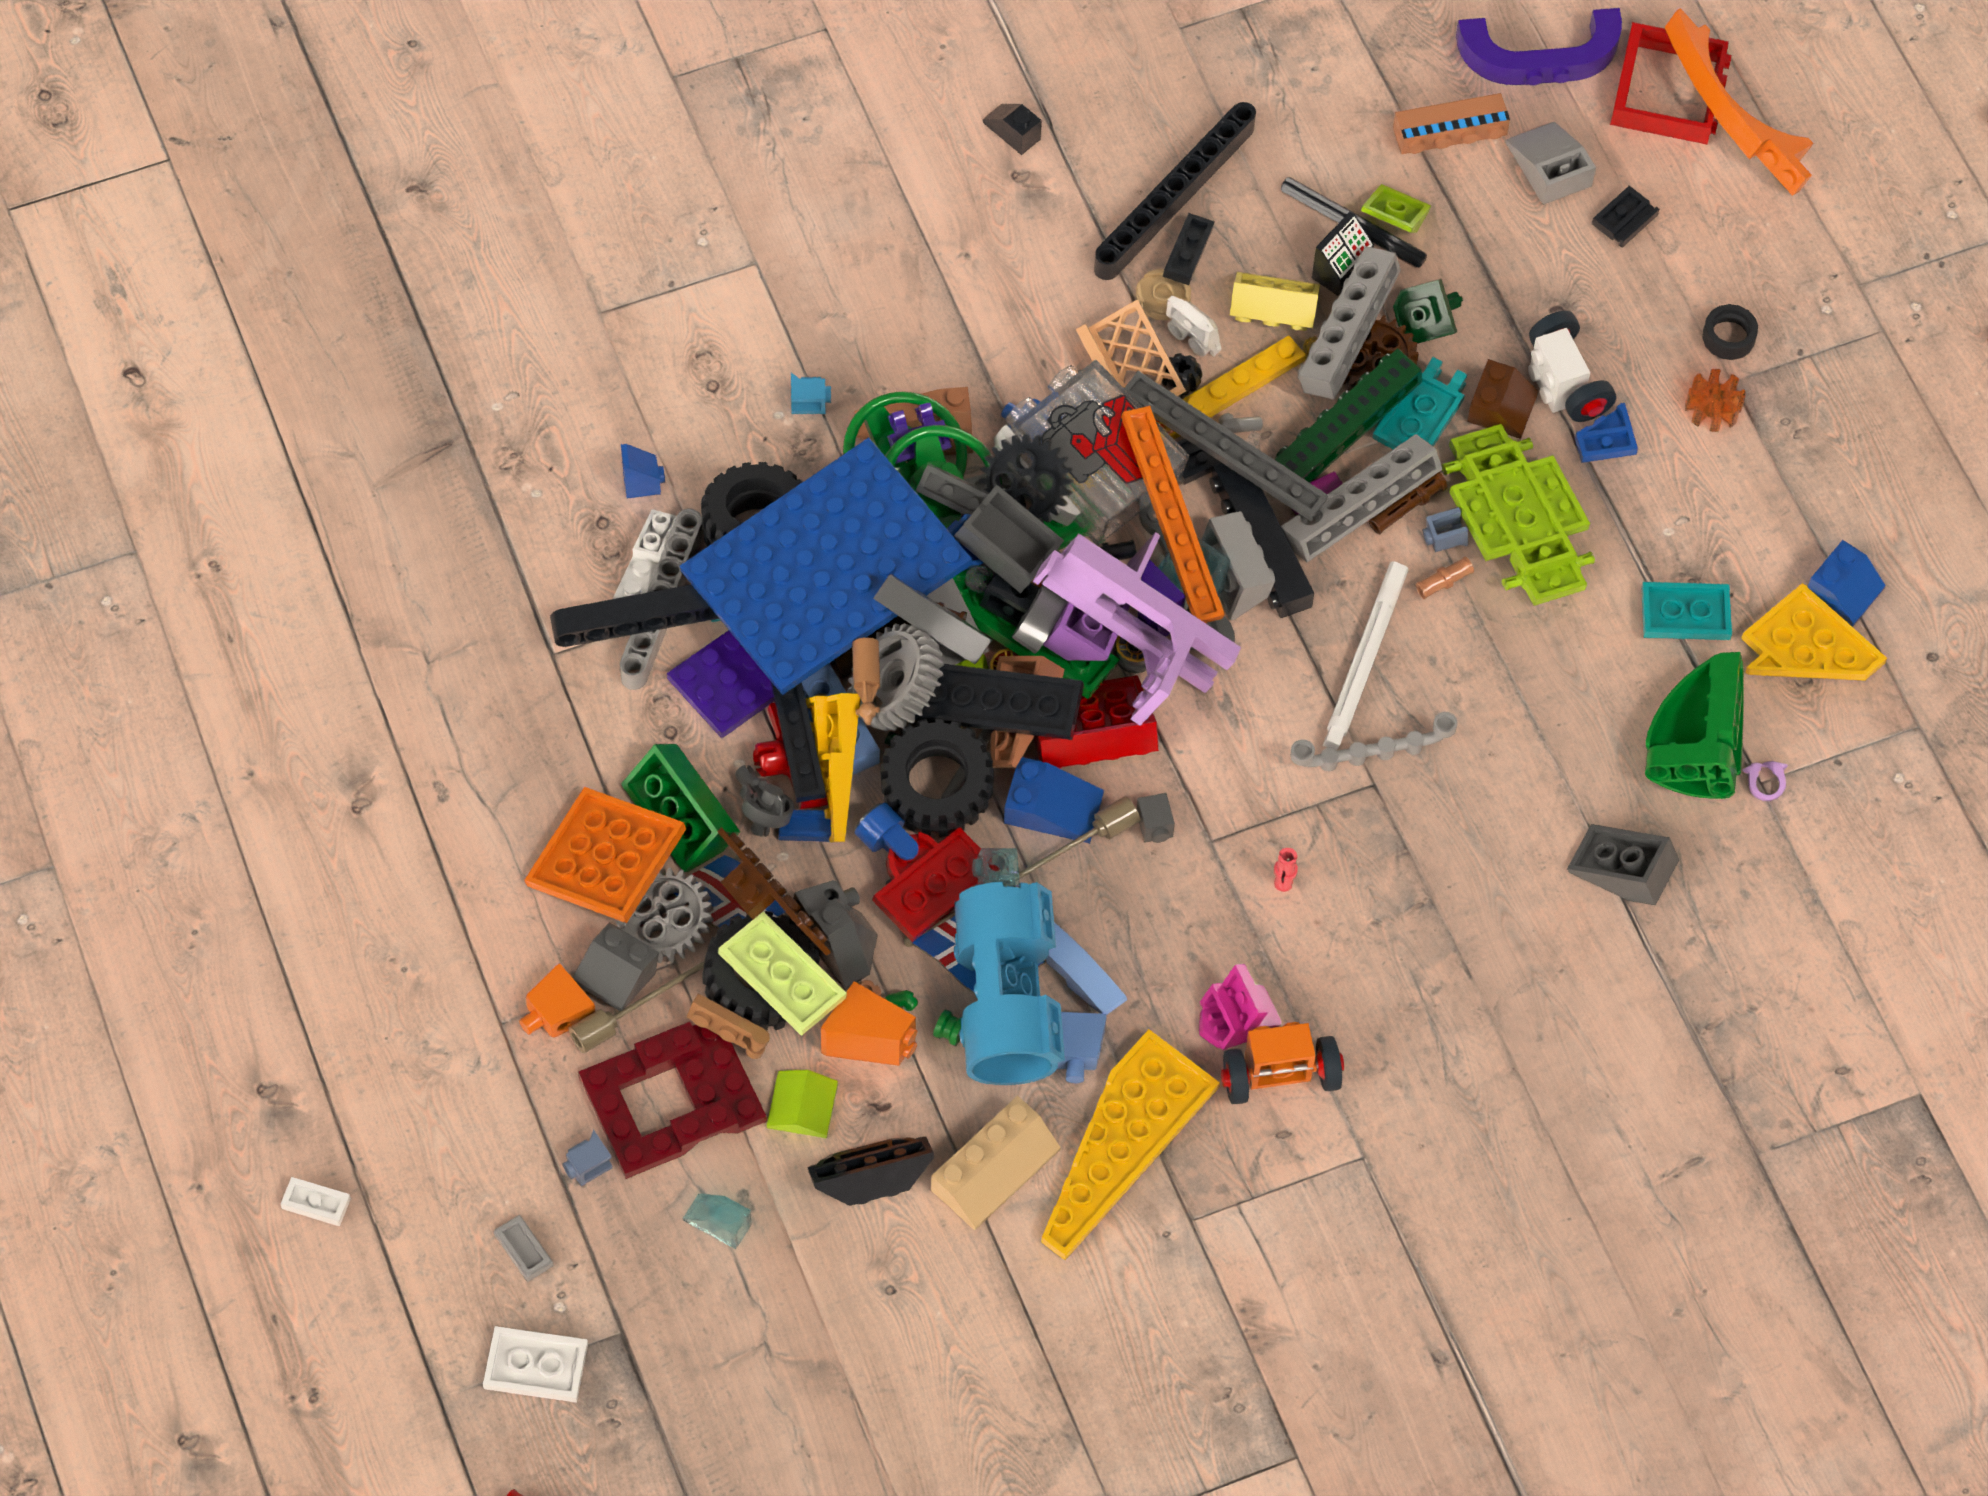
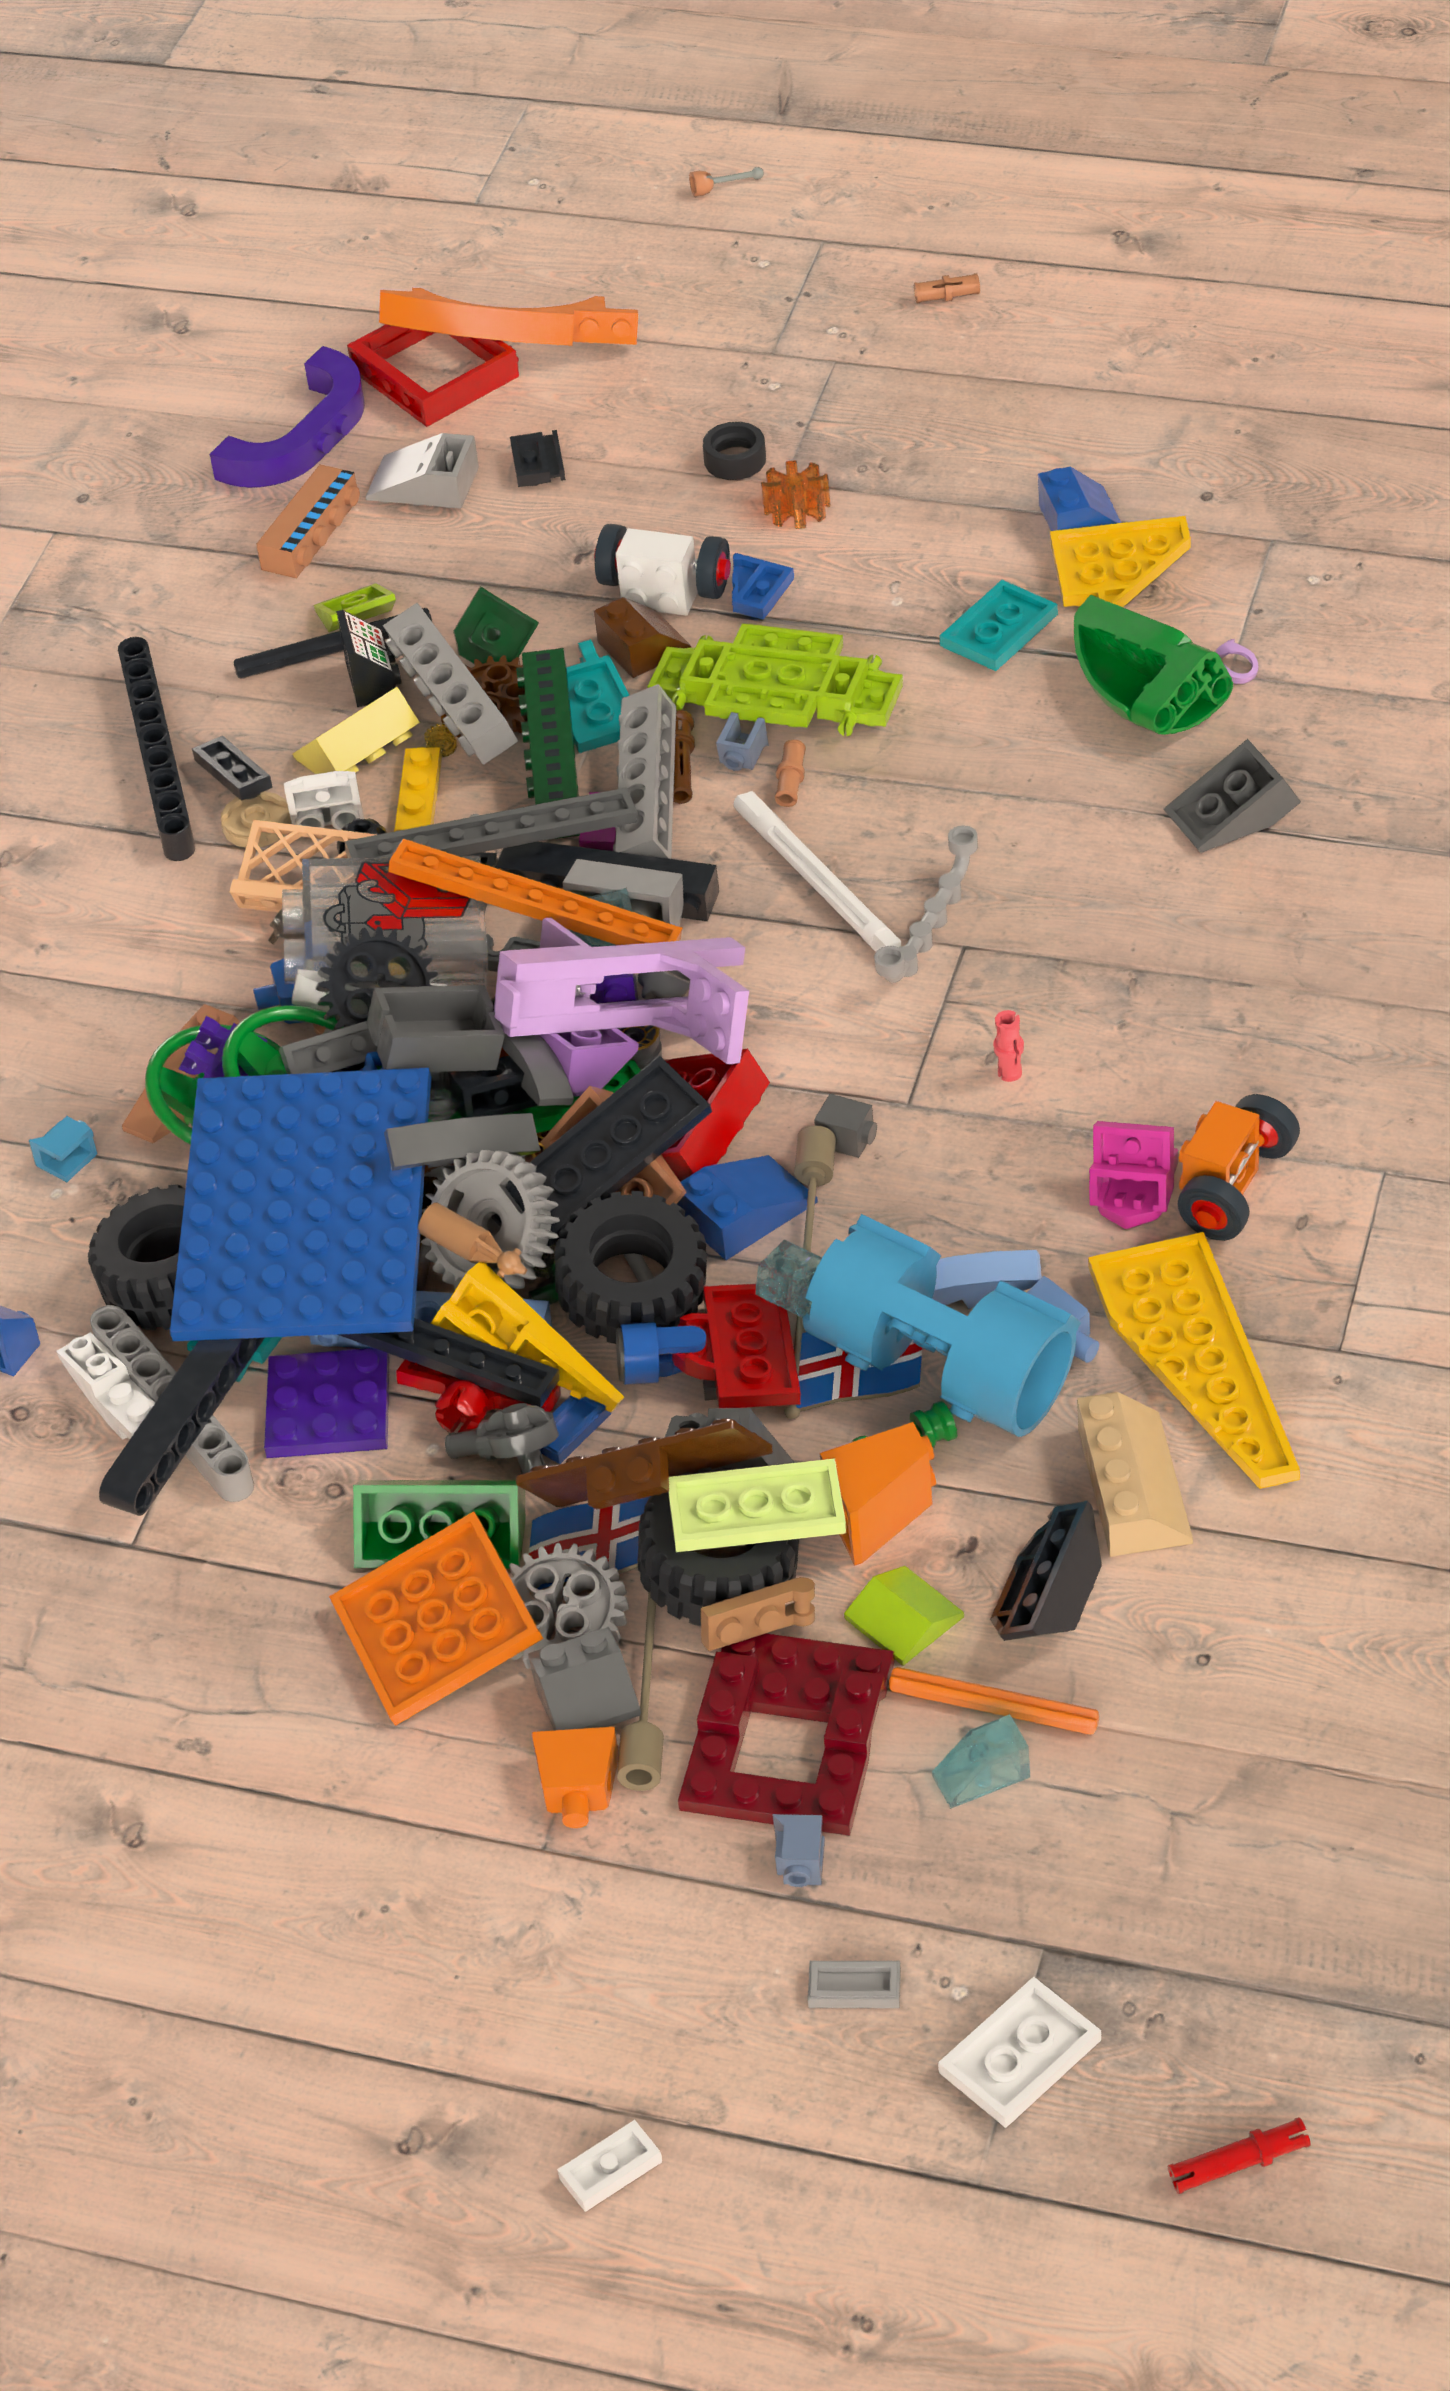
camera: 45 degrees left, 15 degrees down
(772, 1194) = (994, 1700): none -> orange axle

